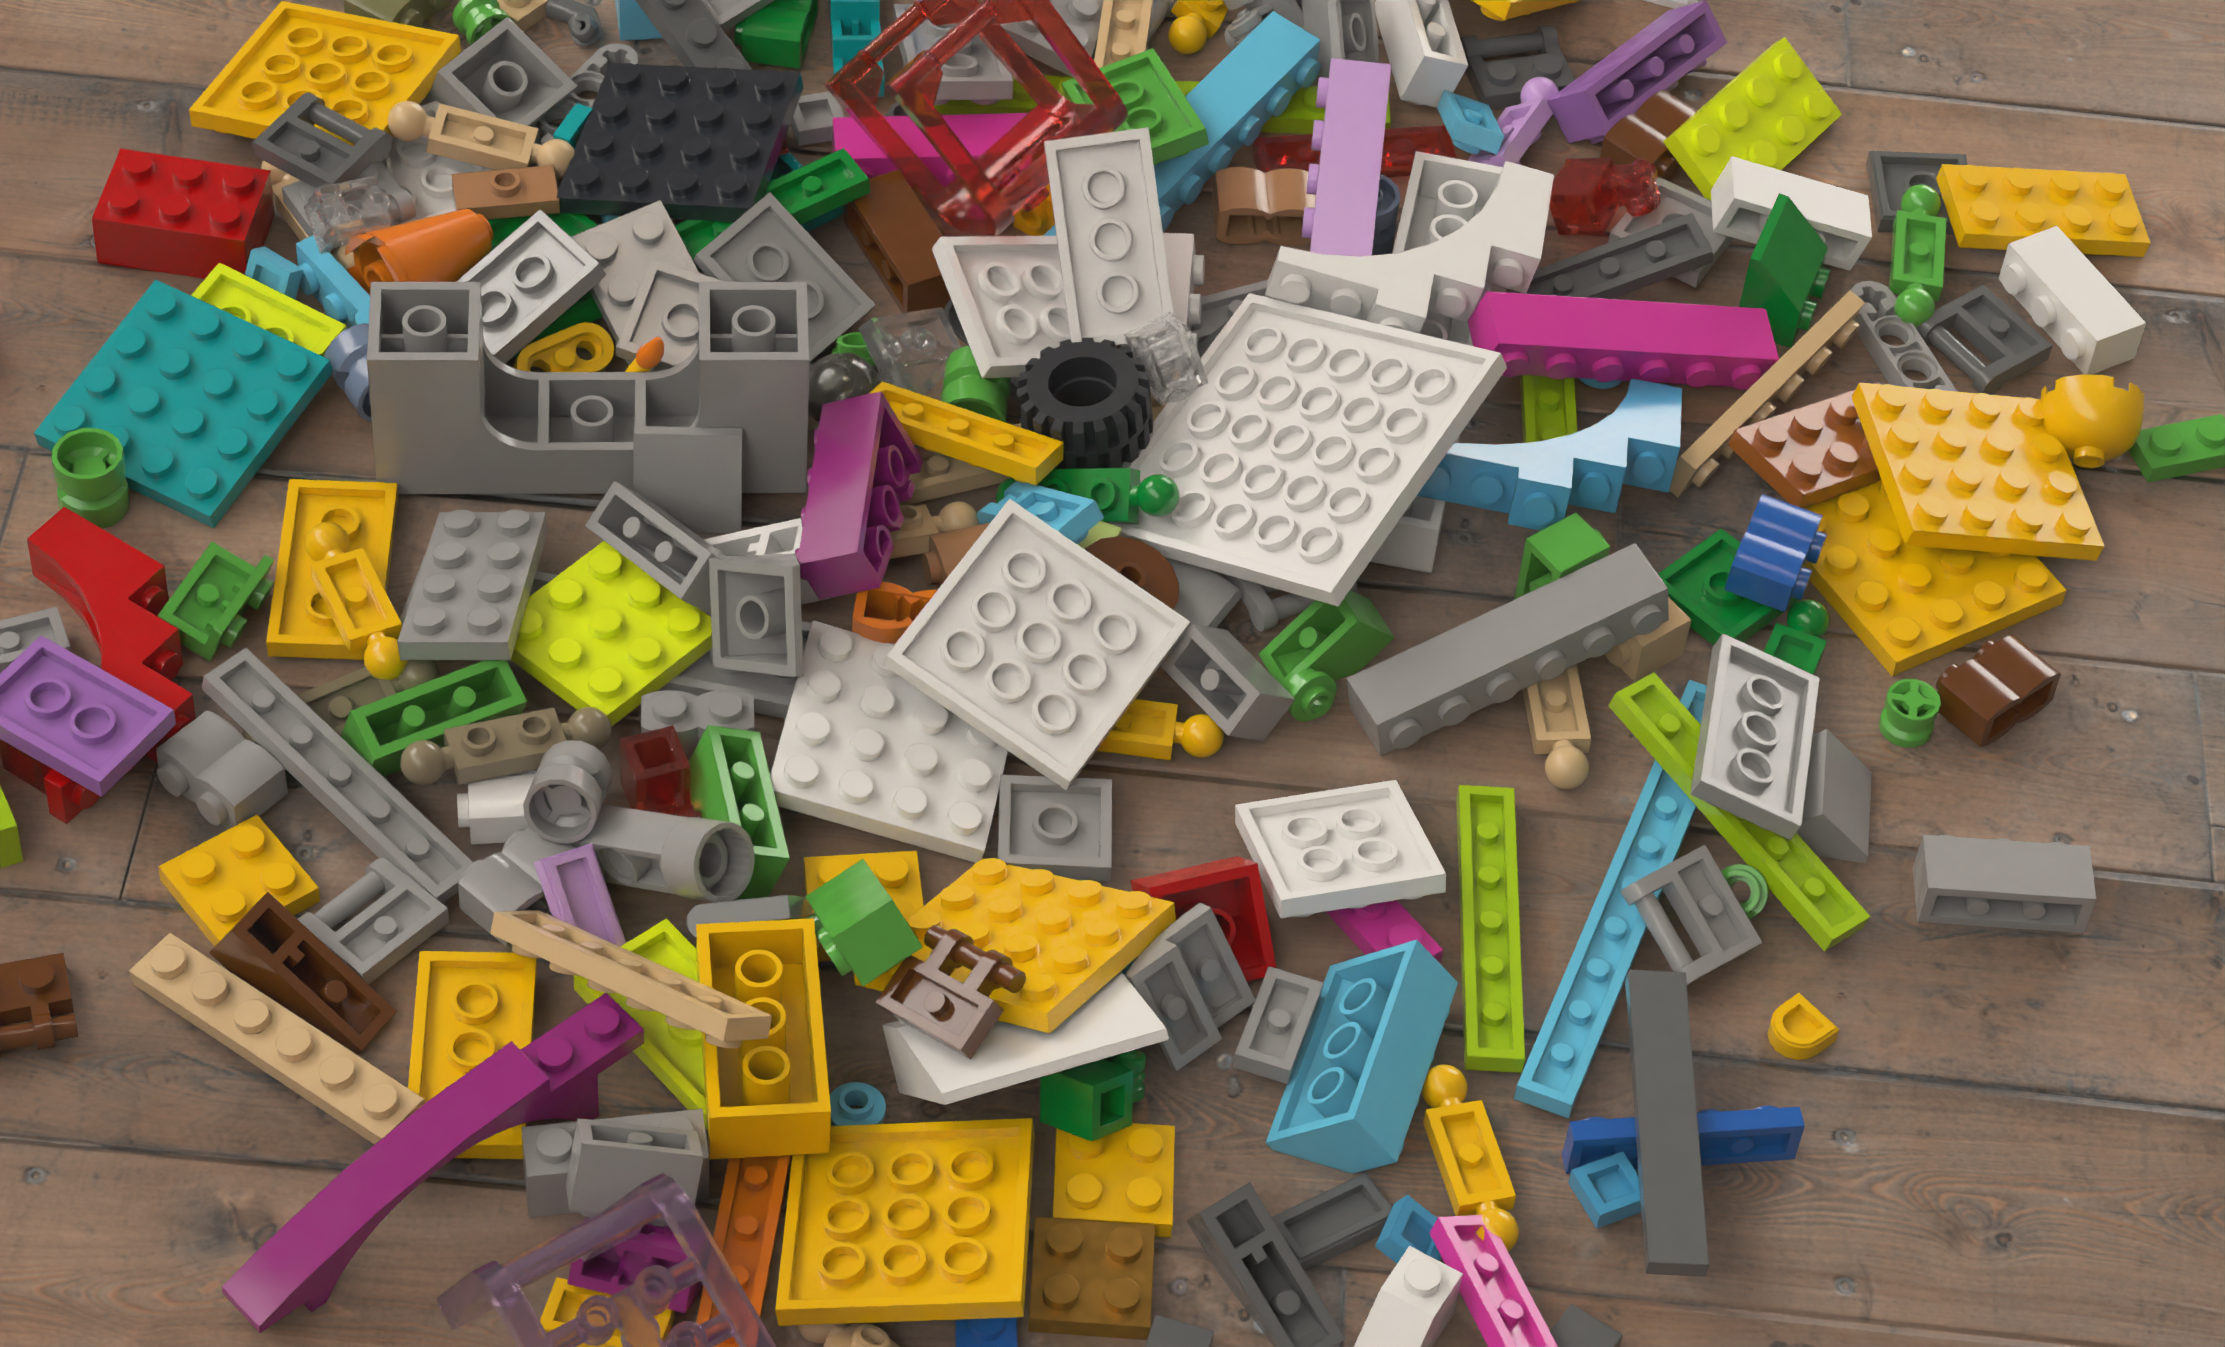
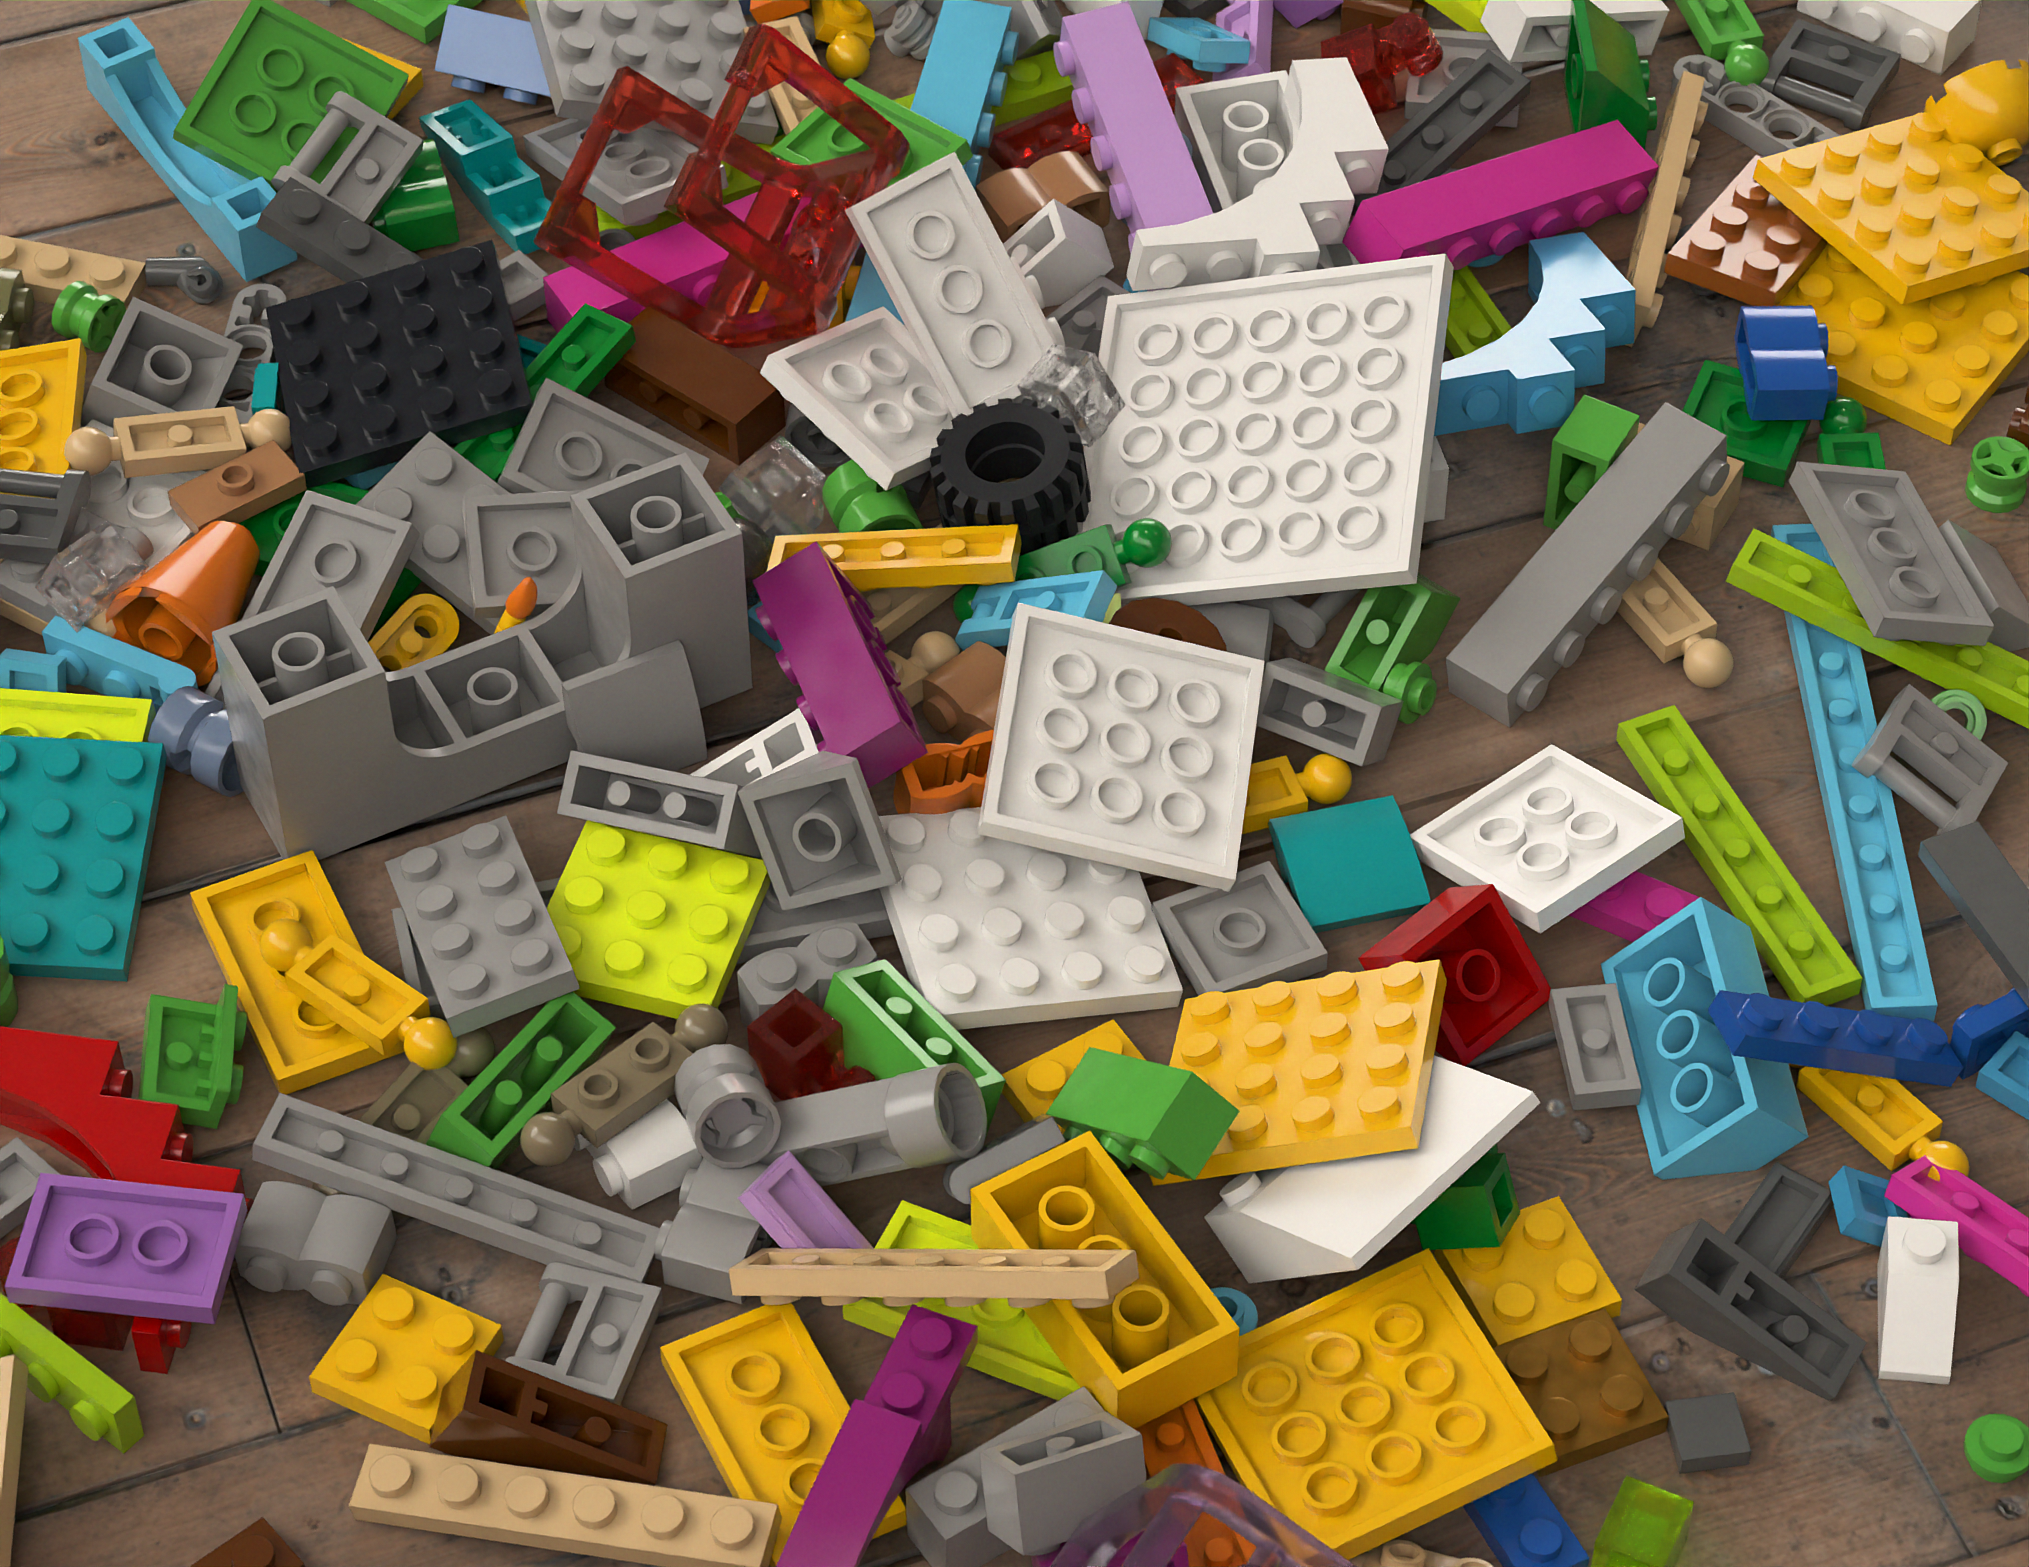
camera: 20 degrees left, 0 degrees up
(942, 1006) = (1290, 1165): plate -> none
(1176, 808) = (1350, 863): none -> teal slope
(1191, 984) = (1493, 1026): light grey slope -> none
(1241, 247) = (1060, 251): none -> white slope
(1460, 1094) = (1835, 1038): none -> blue plate

